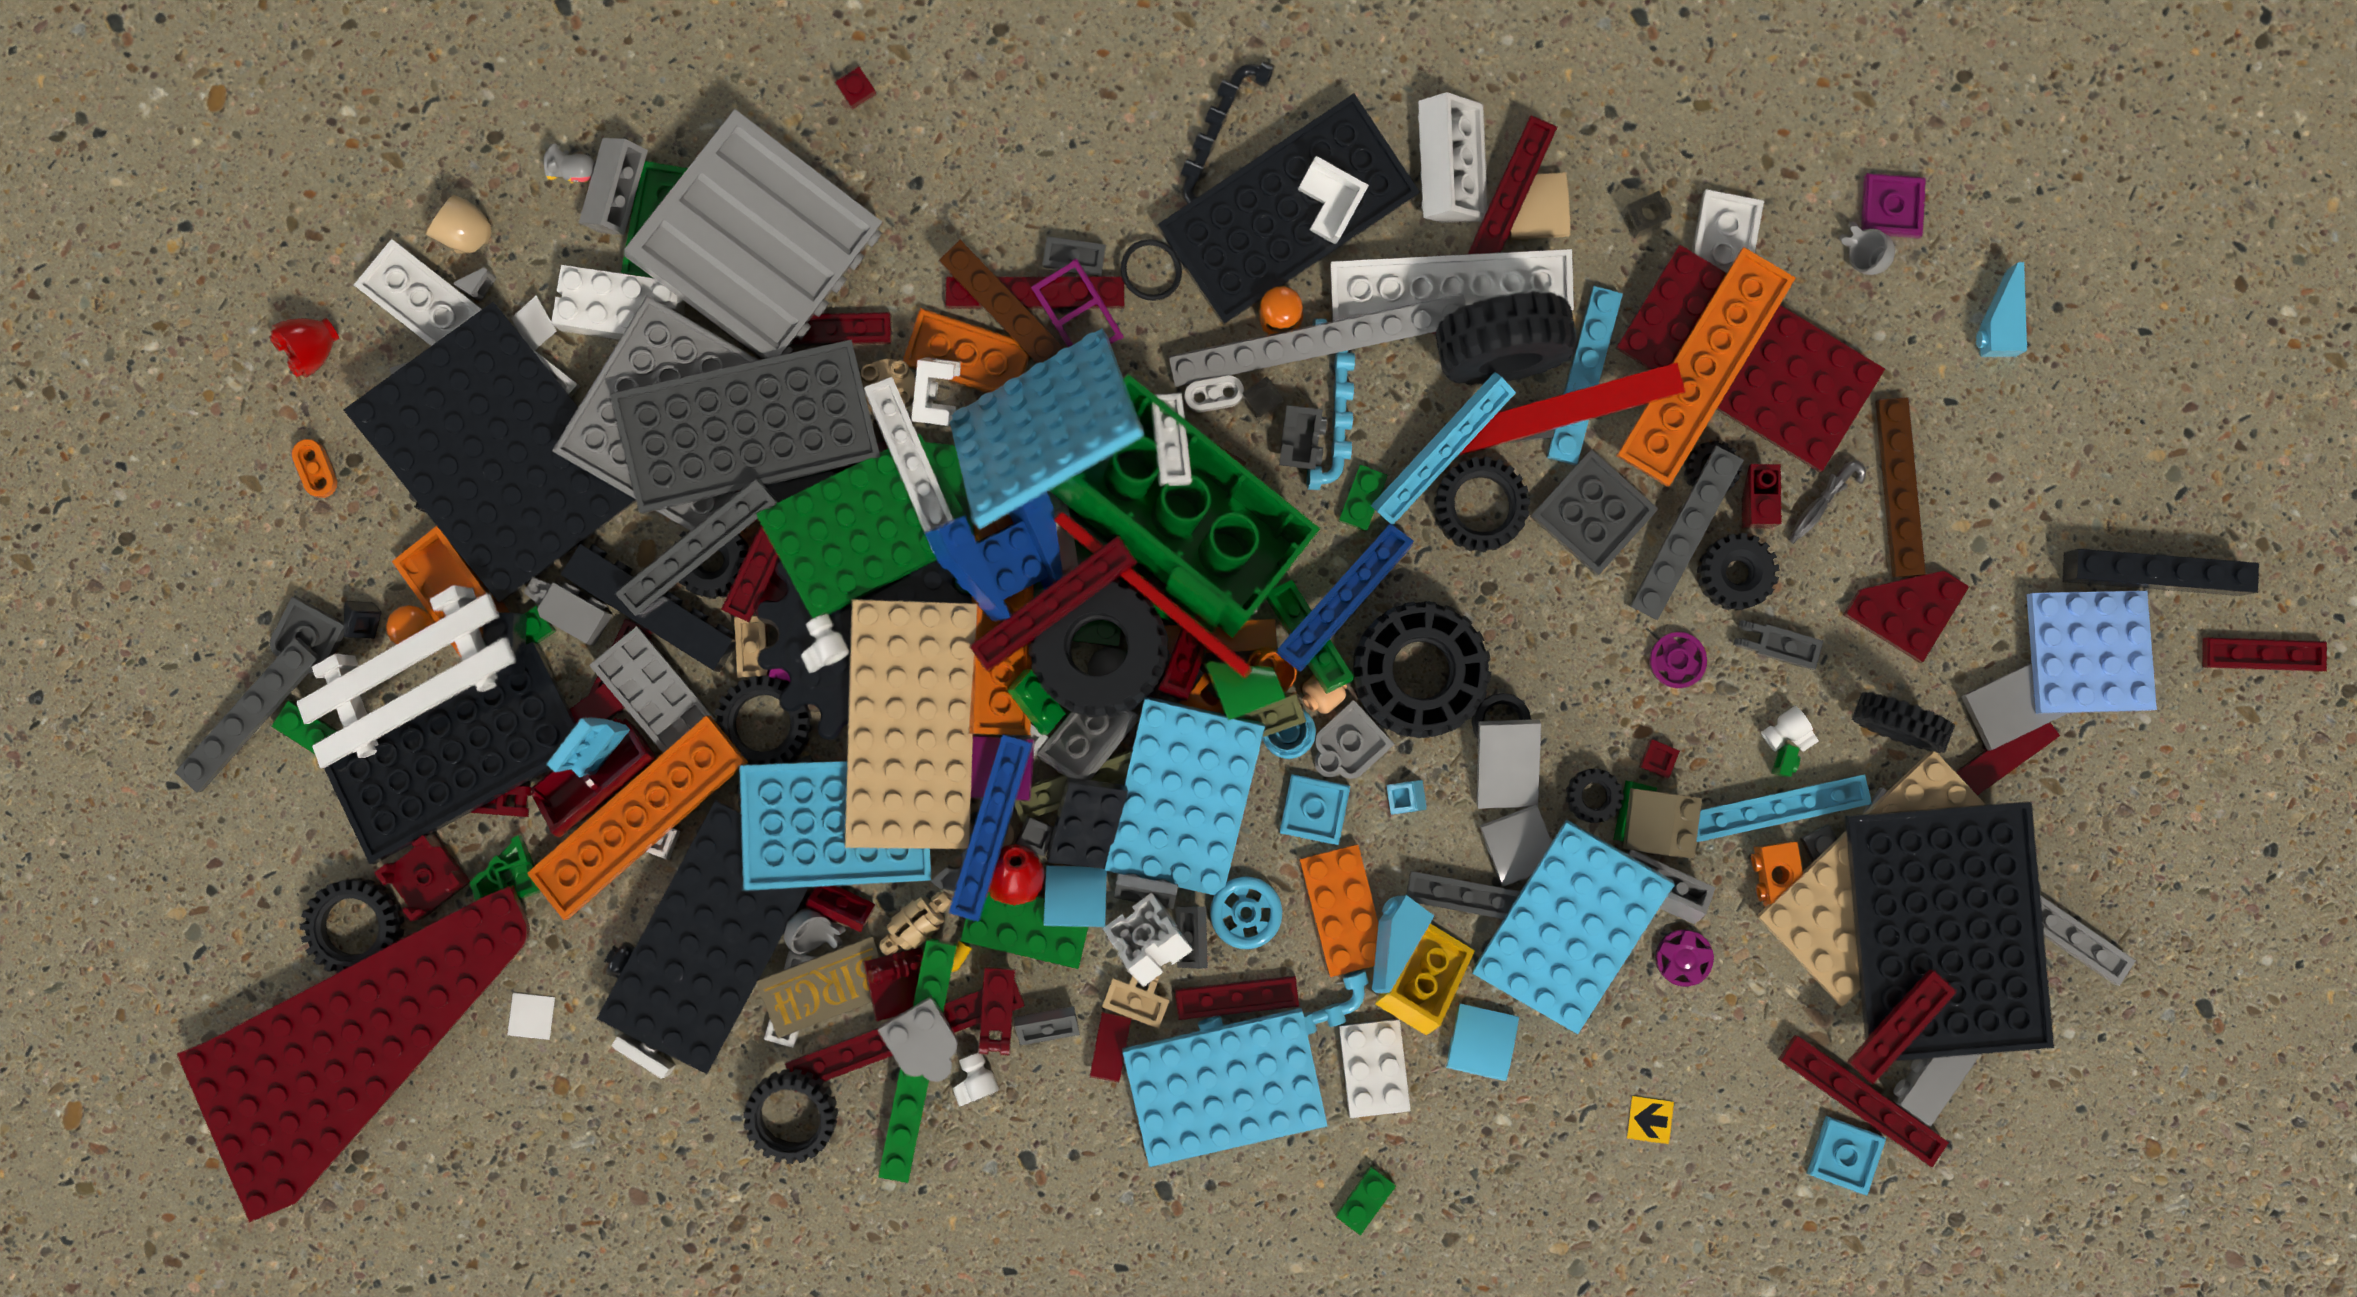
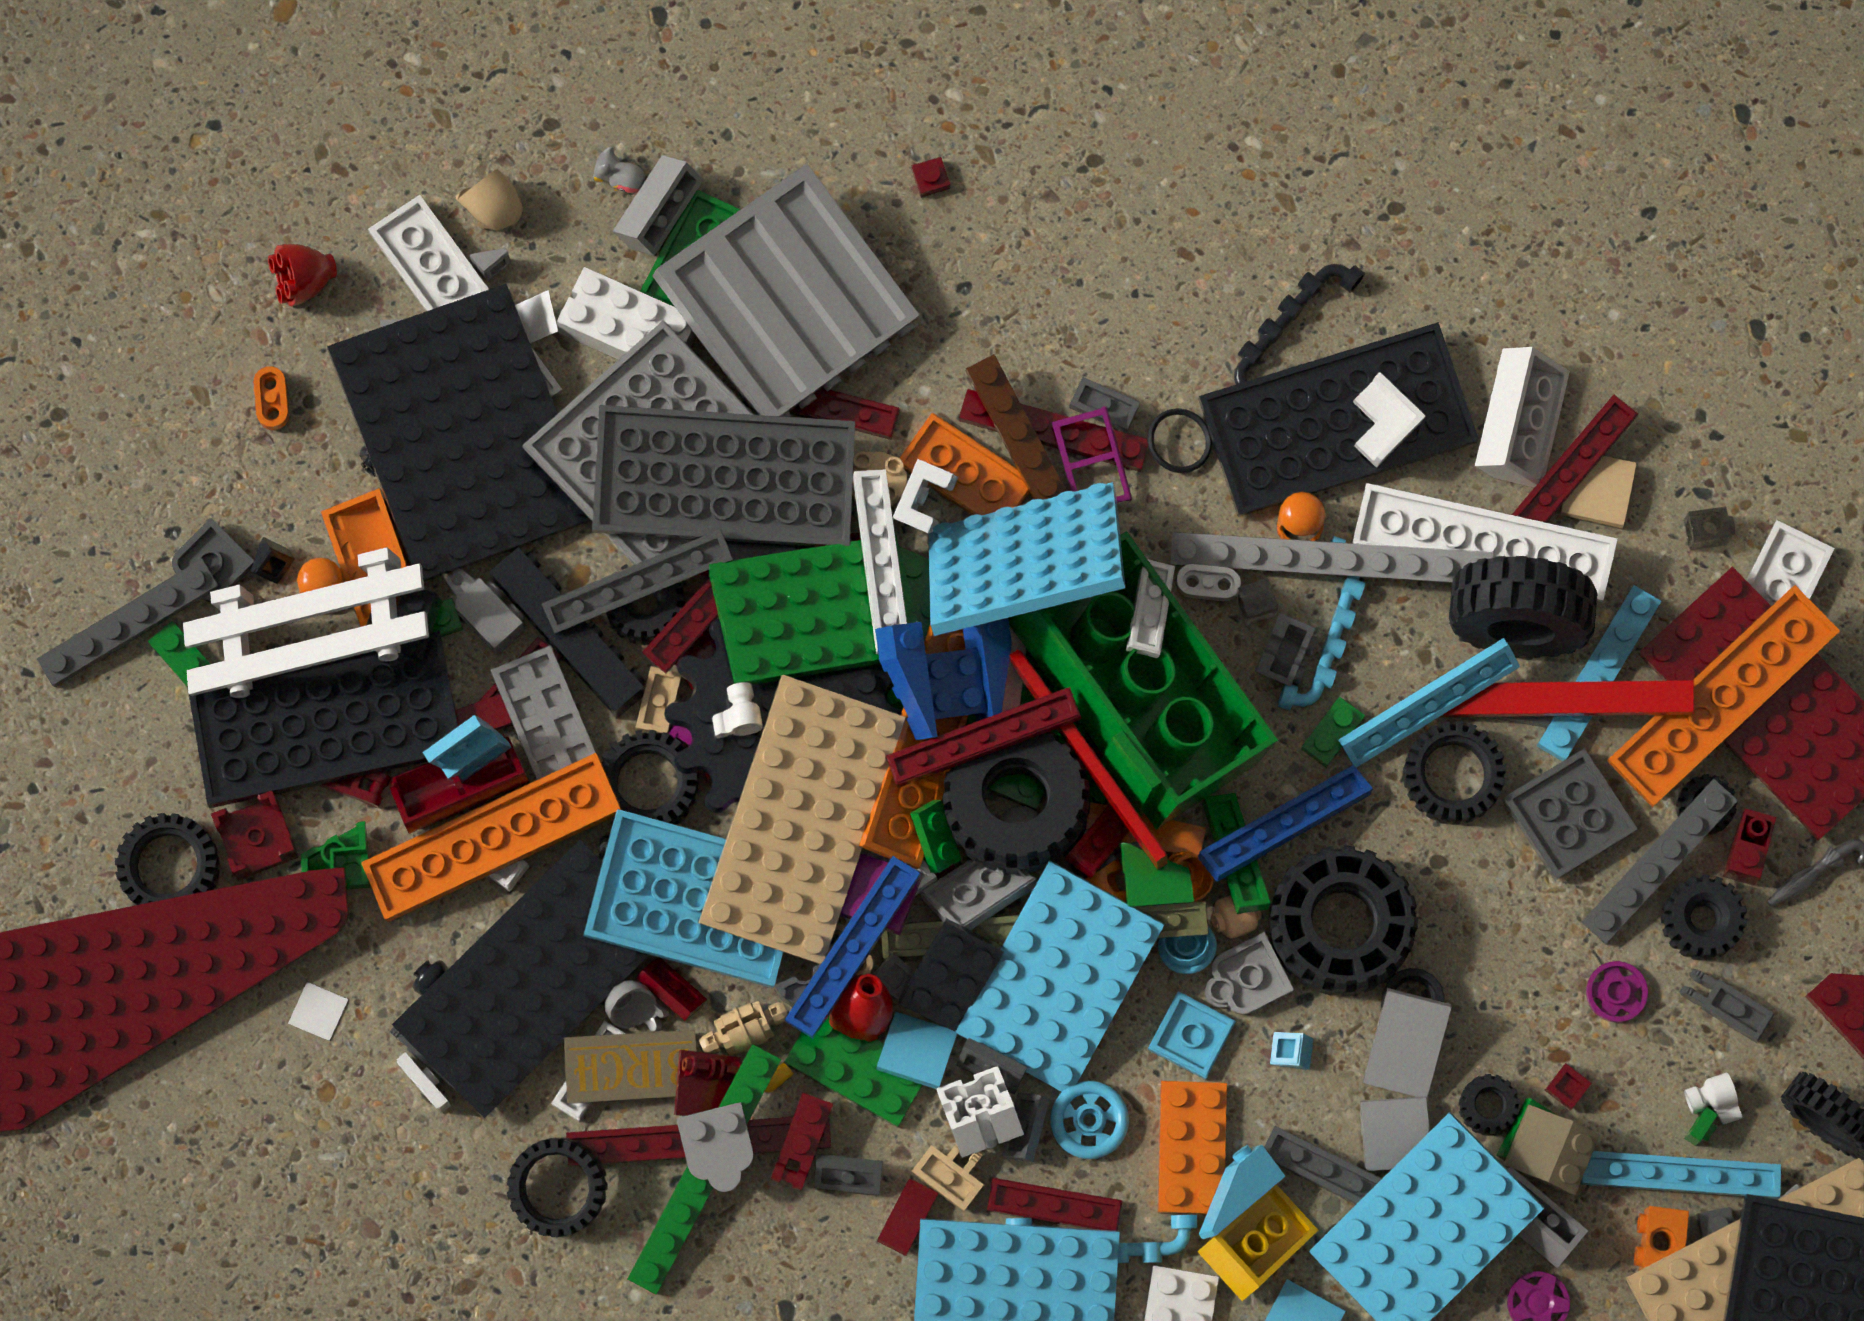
camera: 20 degrees right, 10 degrees down
(978, 1083) = (760, 1213): white piece -> none

